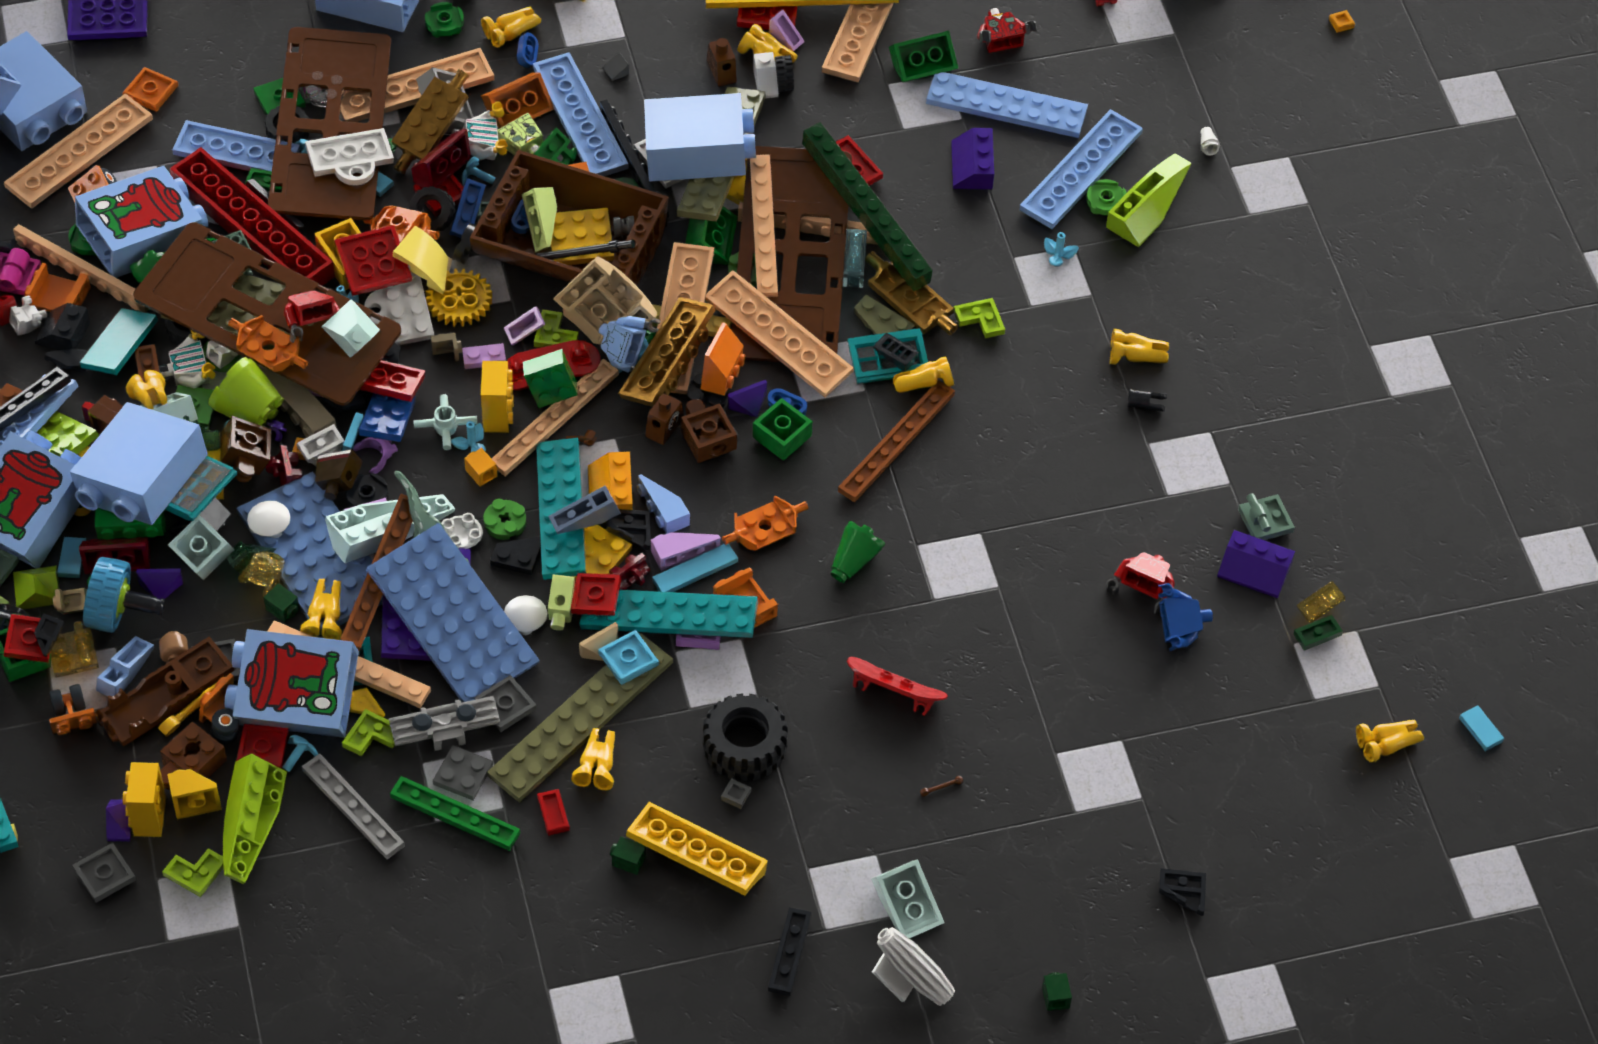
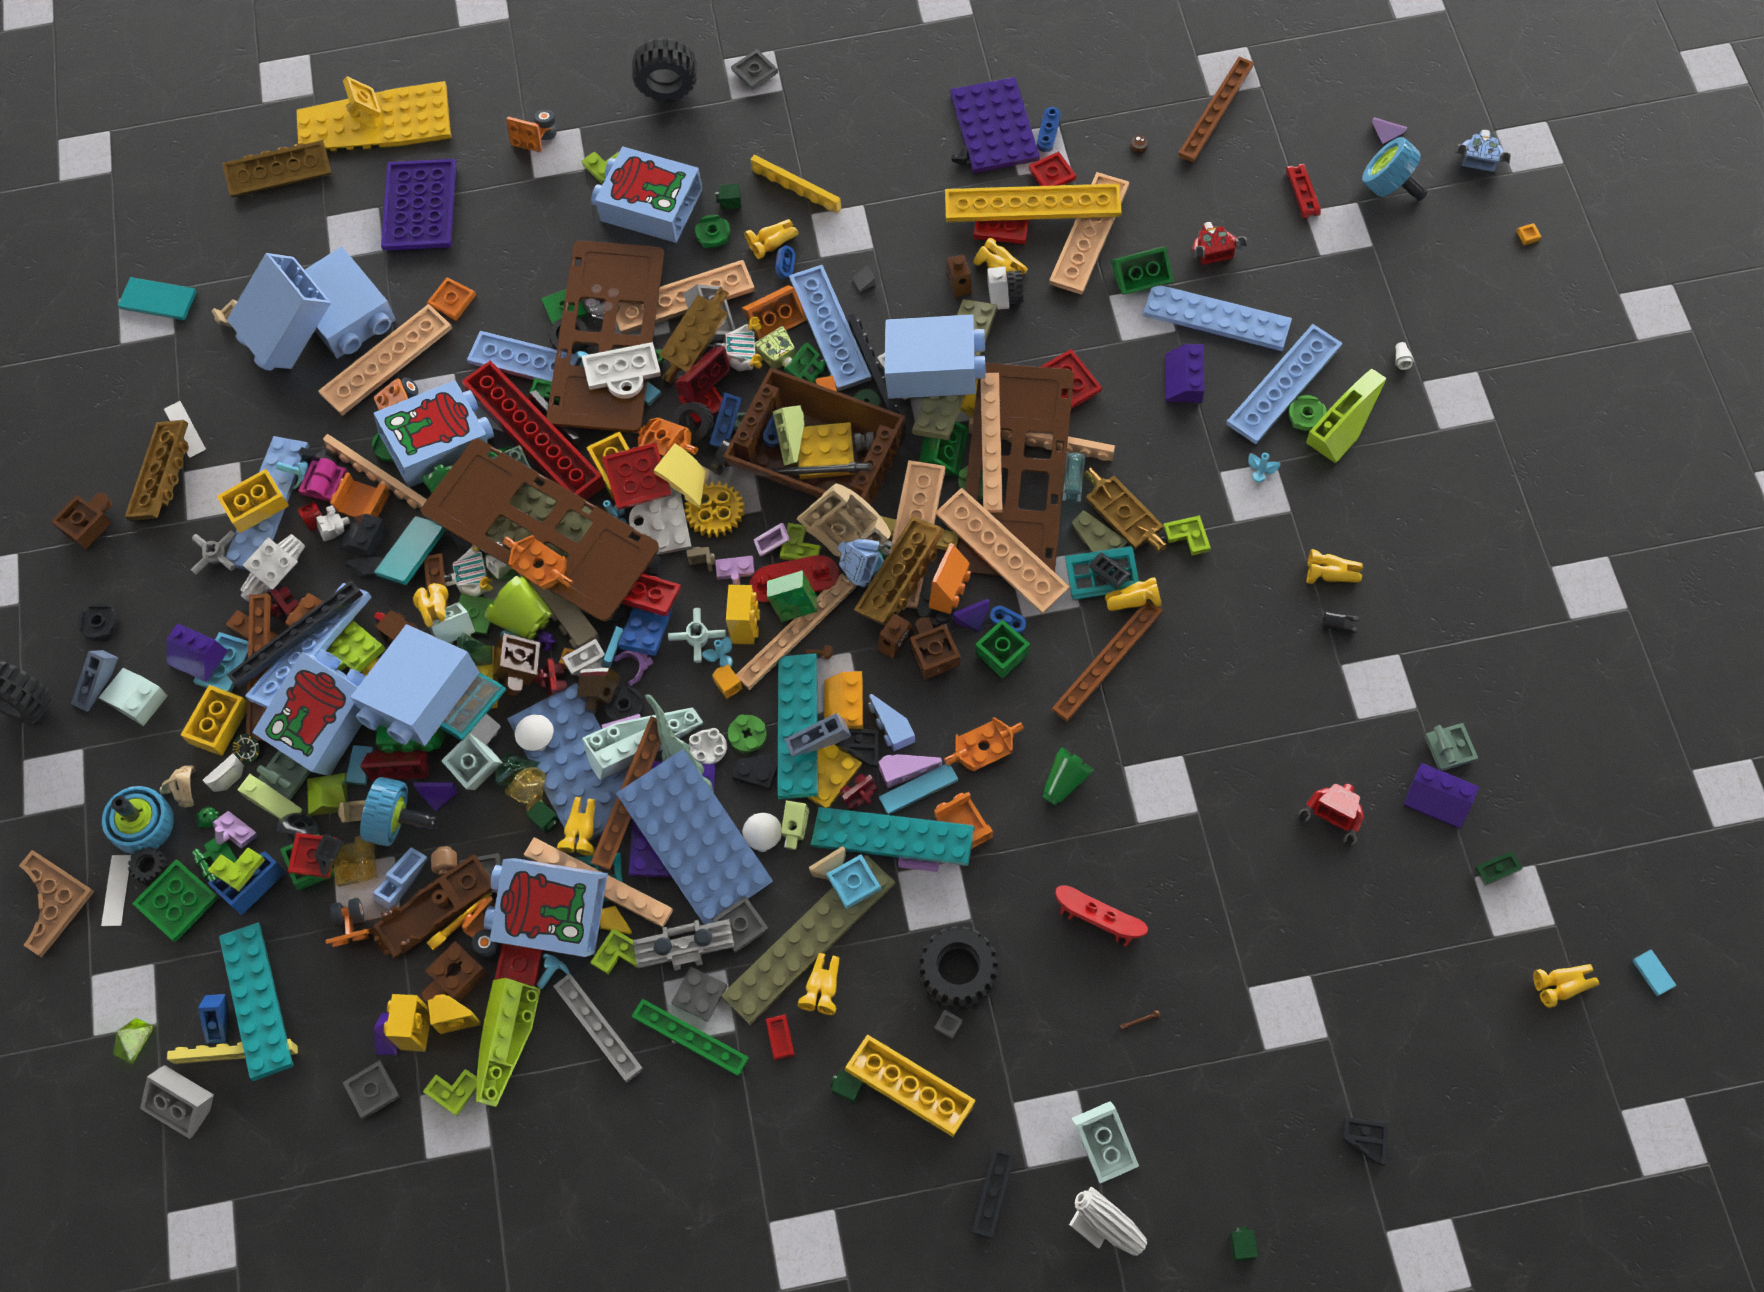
camera: 10 degrees right, 10 degrees up
(308, 309) = (576, 529): red torso -> none
(350, 328) = (612, 548): light aqua slope -> none
(471, 169) = (729, 381): medium azure plant -> none
(595, 594) = (826, 817): red plate -> none
(785, 31) = (1017, 245): lavender slope -> none
(867, 206) = (1086, 426): dark green brick -> none
(1181, 617) = (1369, 853): blue torso -> none
(1321, 602) = (1502, 837): clear yellow plate -> none

